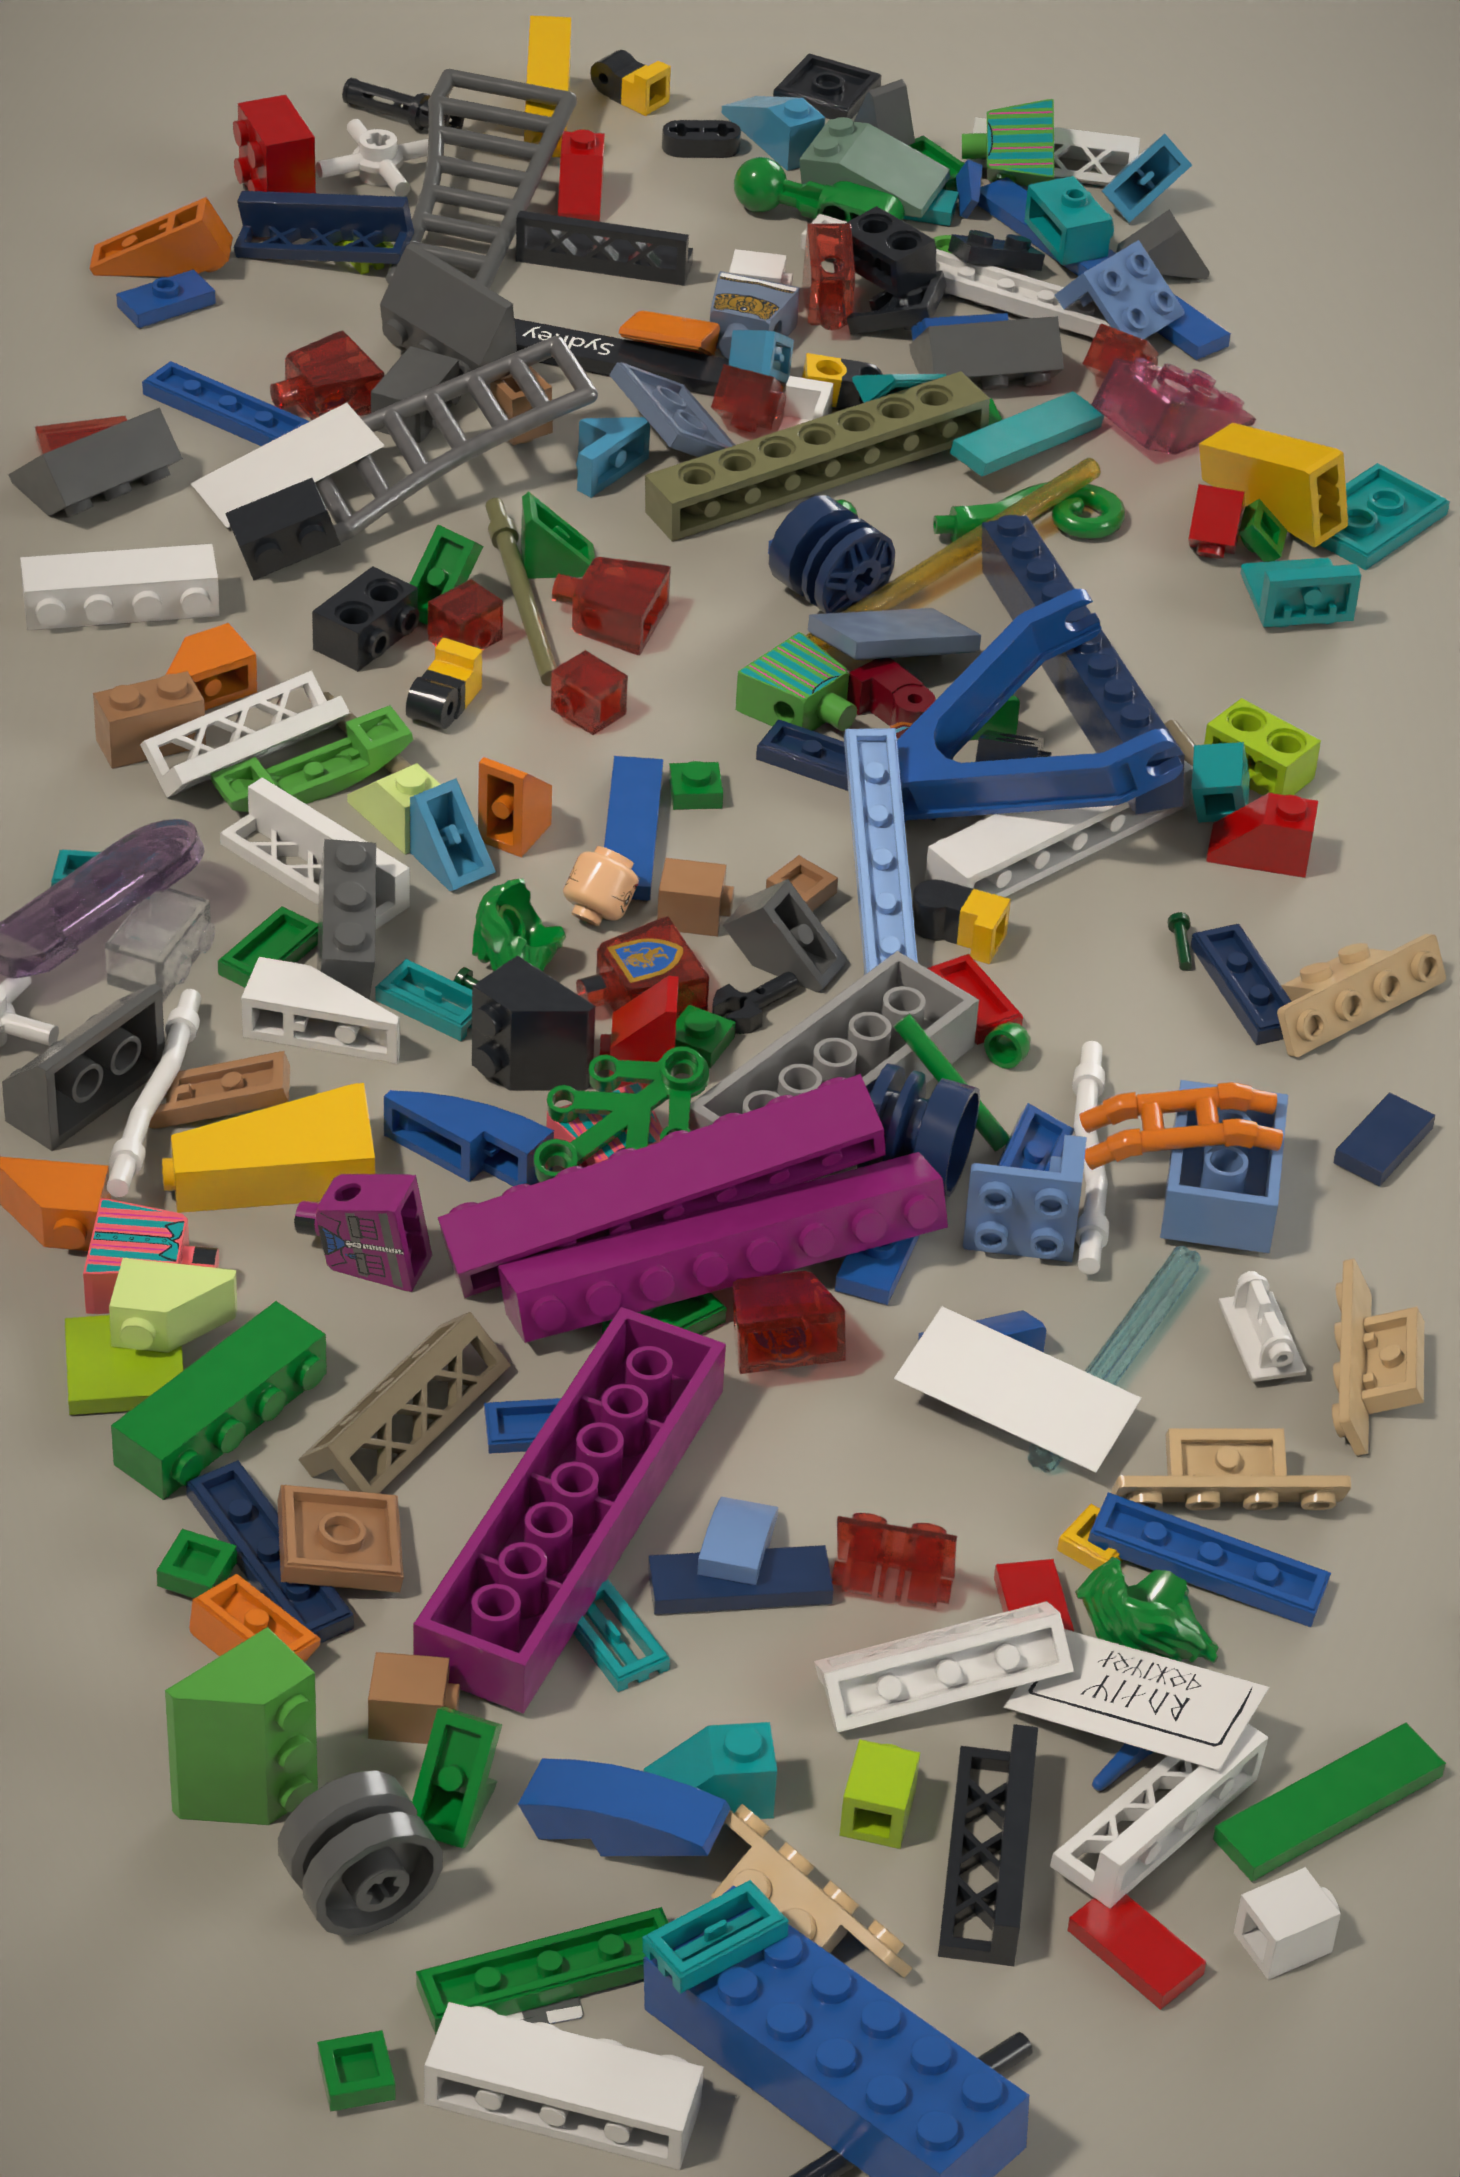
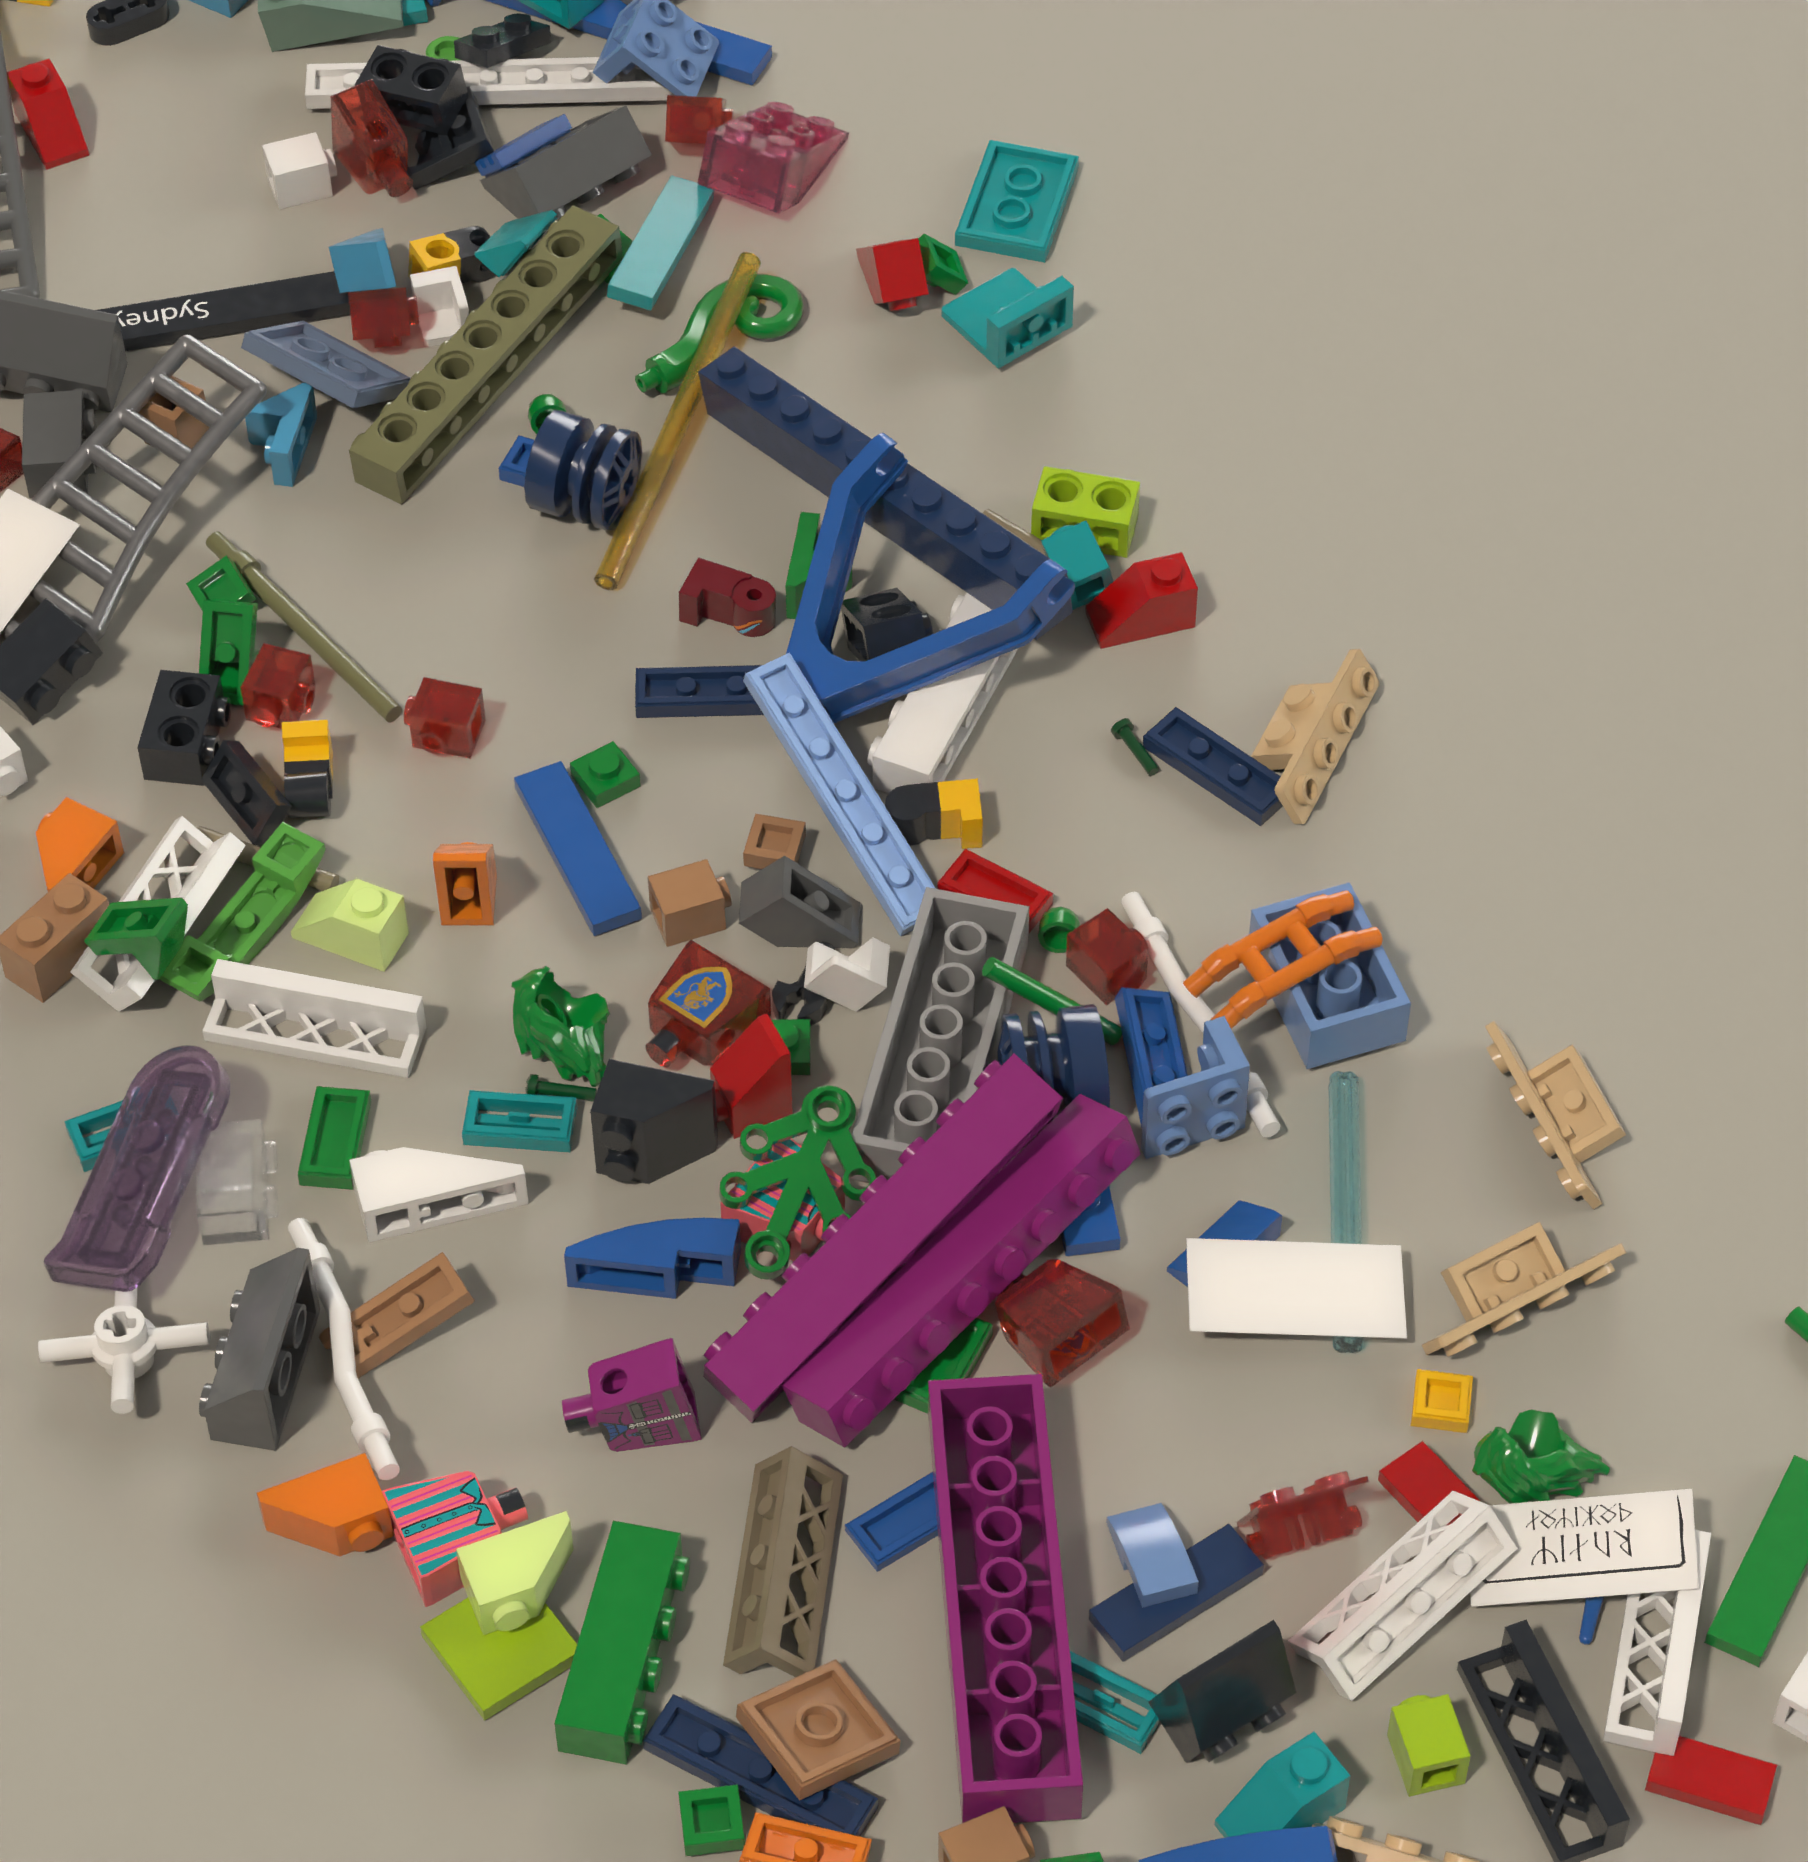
camera: 25 degrees left, 10 degrees up
(216, 733) = (145, 928): none -> green slope
(272, 1153) = (501, 1359): yellow slope -> none
(347, 913) = (399, 1076): dark grey brick -> none
(382, 676) = (245, 792): none -> black plate
(447, 837) = (427, 943): dark azure slope -> none
(477, 528) = (221, 582): none -> green plate
(550, 543) = (302, 563): green slope -> none
(600, 886) = (601, 931): light nougat head -> none
(603, 248) = (123, 192): black fence -> none
(616, 601) = (404, 602): clear red torso -> none
(672, 332) = (255, 264): orange slope -> none
(715, 1659) = (1227, 1694): none -> black slope
(752, 305) = (313, 212): sand blue torso -> none
(763, 185) = (232, 52): green beam -> none
(784, 999) = (846, 979): none -> white panel
(797, 686) = (634, 626): bright green torso -> none
(894, 633) = (688, 528): sand blue tile -> none
(1036, 1074) = (1107, 955): none -> clear red brick
(1210, 1559) = (1544, 1375): blue tile -> none
(1261, 1330) = (1450, 1126): white hinge -> none
(1291, 476) = (906, 198): yellow slope -> none
(1384, 1139) = (1429, 876): dark blue tile -> none

